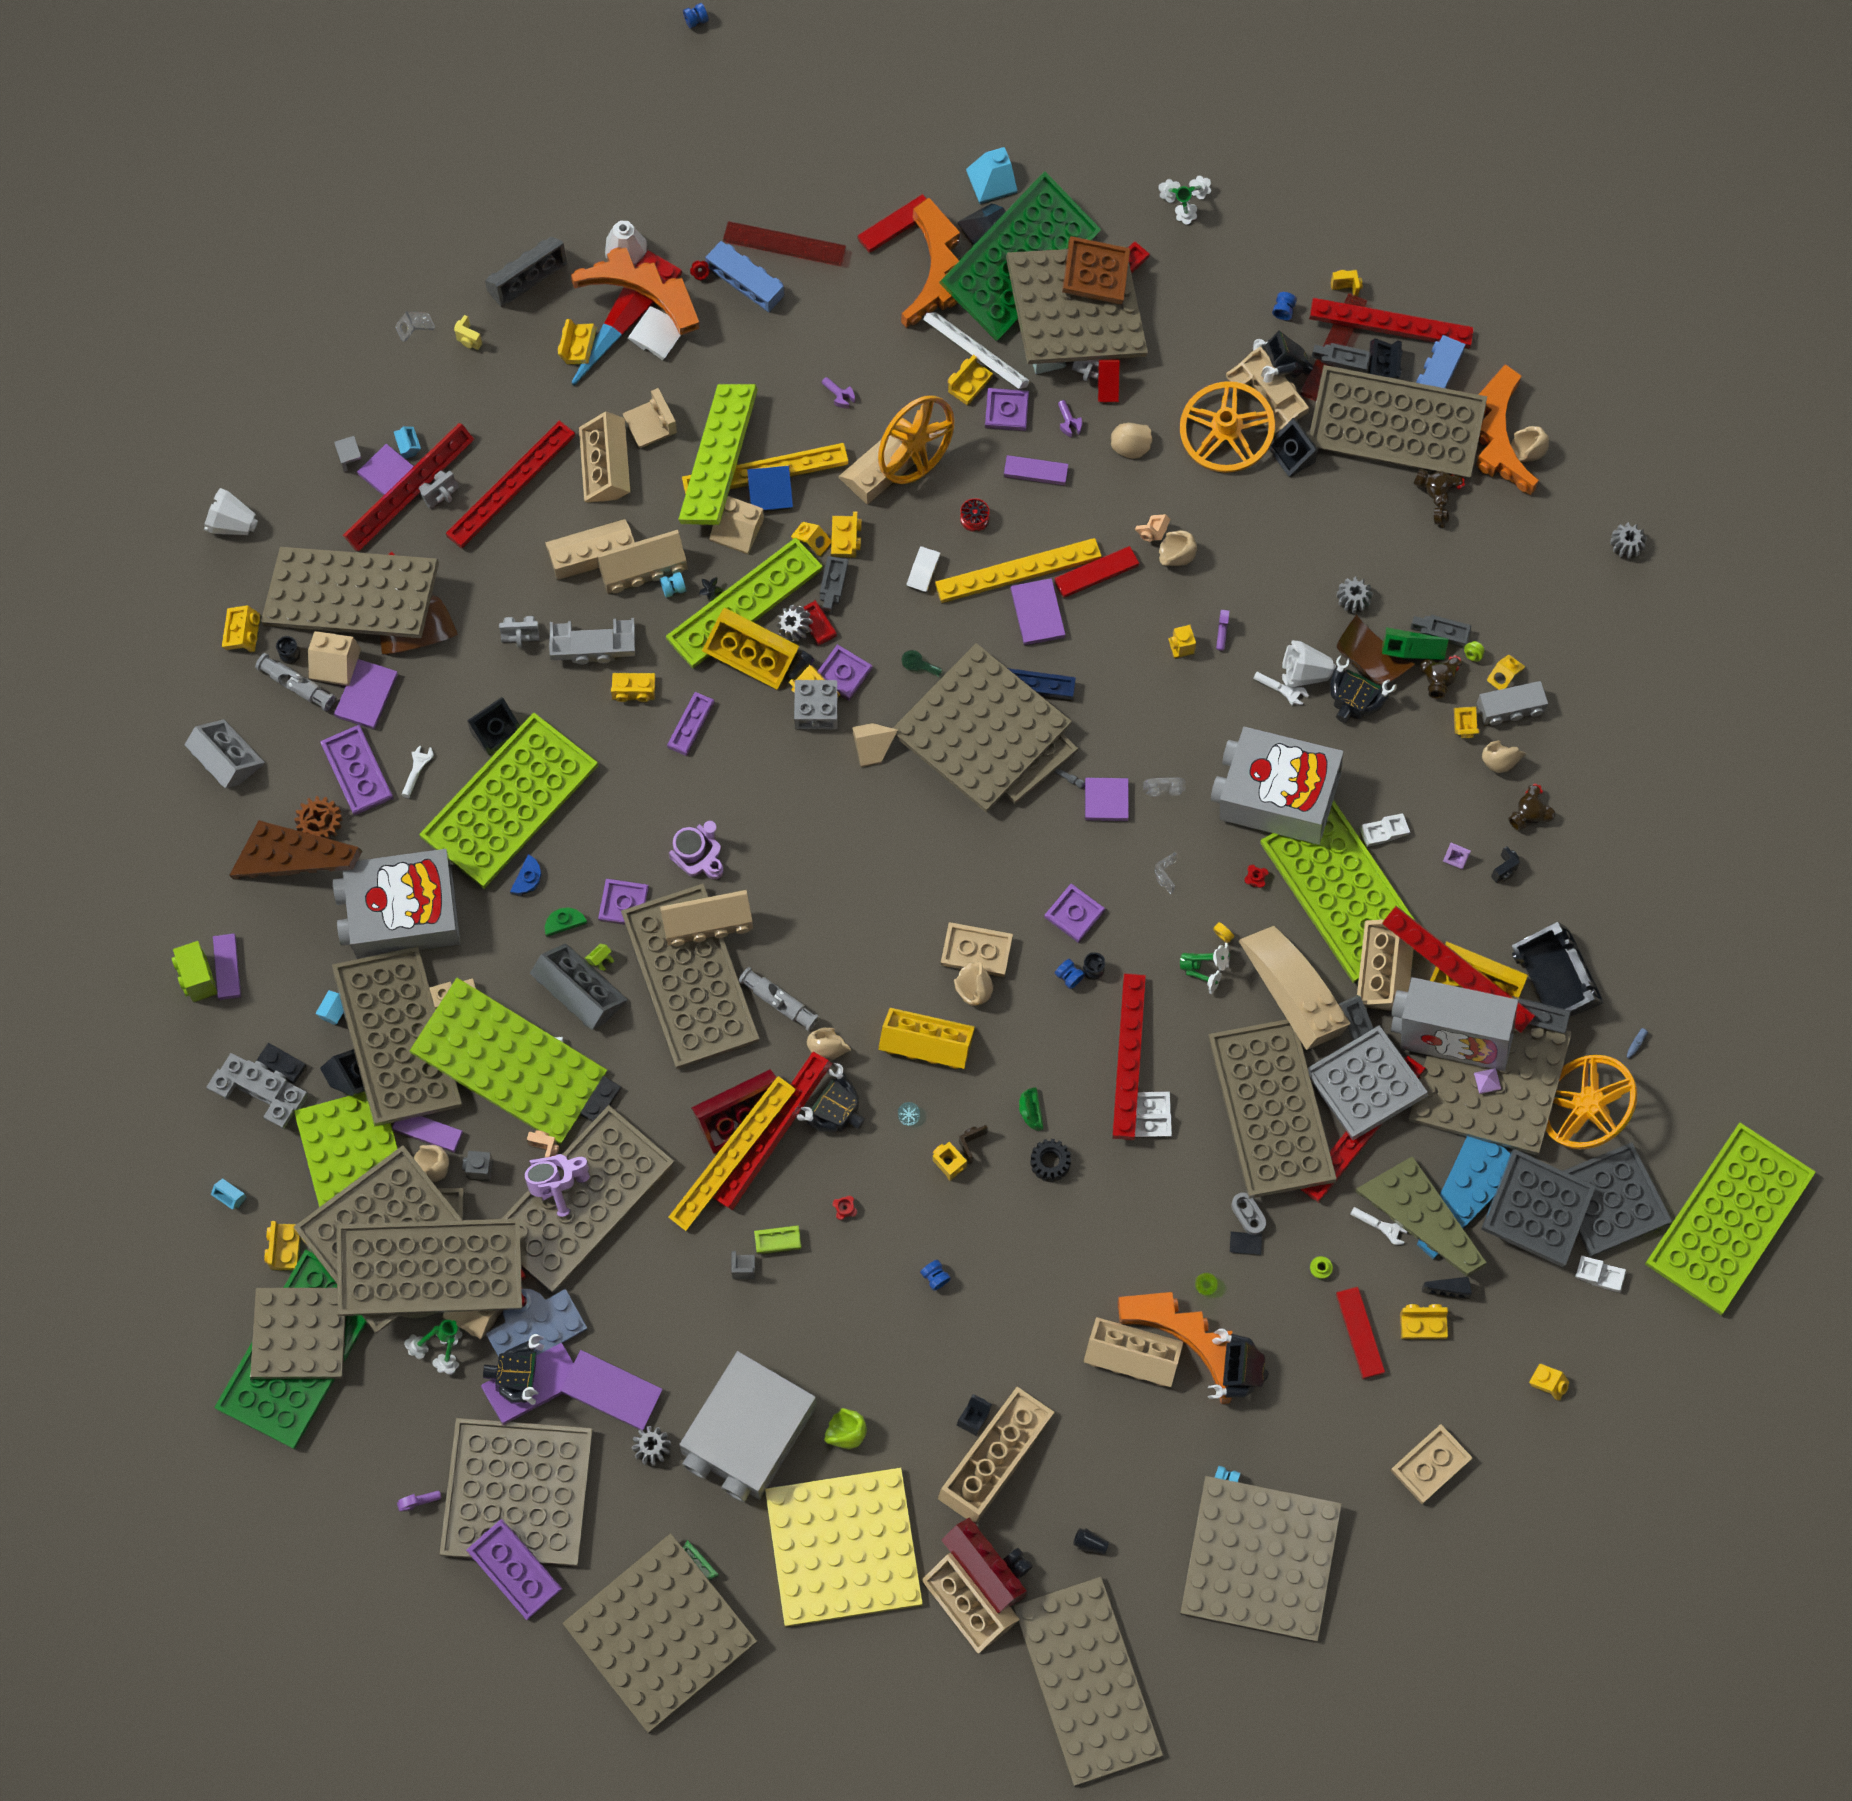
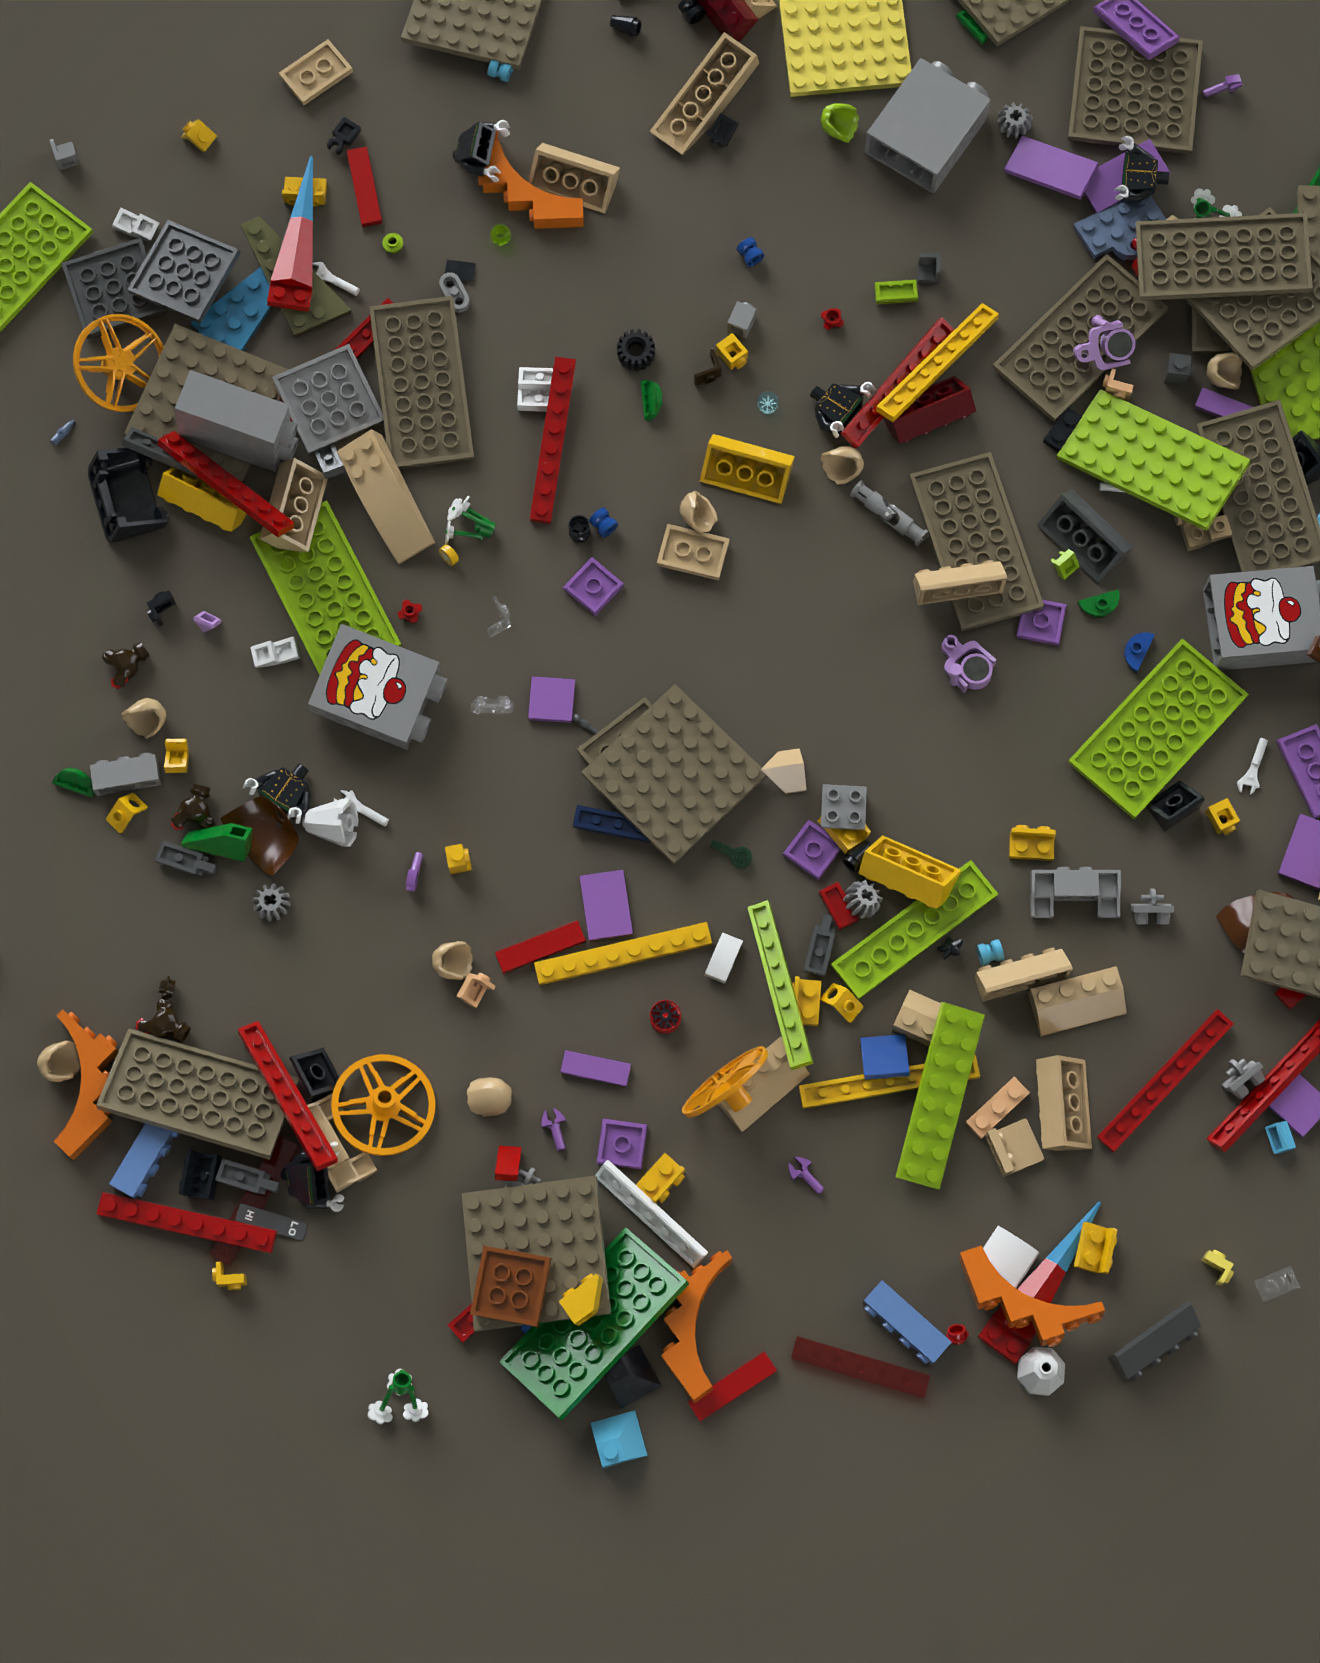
camera: 175 degrees left, 5 degrees up
(452, 725) = (1225, 810): none -> yellow brick
(665, 456) = (997, 1107): none -> light nougat plate
(690, 723) = (972, 802): medium lavender tile -> none
(869, 538) = (780, 985): none -> lime plate
(940, 1198) = (741, 319): none -> light grey brick
(1031, 254) = (584, 1300): none -> yellow slope
(1283, 308) = (302, 1250): blue wheel -> none
(1315, 418) = (287, 1096): none -> red plate
(1316, 329) = (284, 1225): none -> dark grey sticker
(1388, 1391) = (344, 133): none -> black plate
(1422, 1212) = (292, 273): none -> plate
(1452, 1287) = (274, 216): black slope -> none
(1474, 651) = (155, 833): lime plate -> none
(1562, 697) = (74, 780): none -> green plate
(1692, 1351) = (64, 155): none -> light grey panel

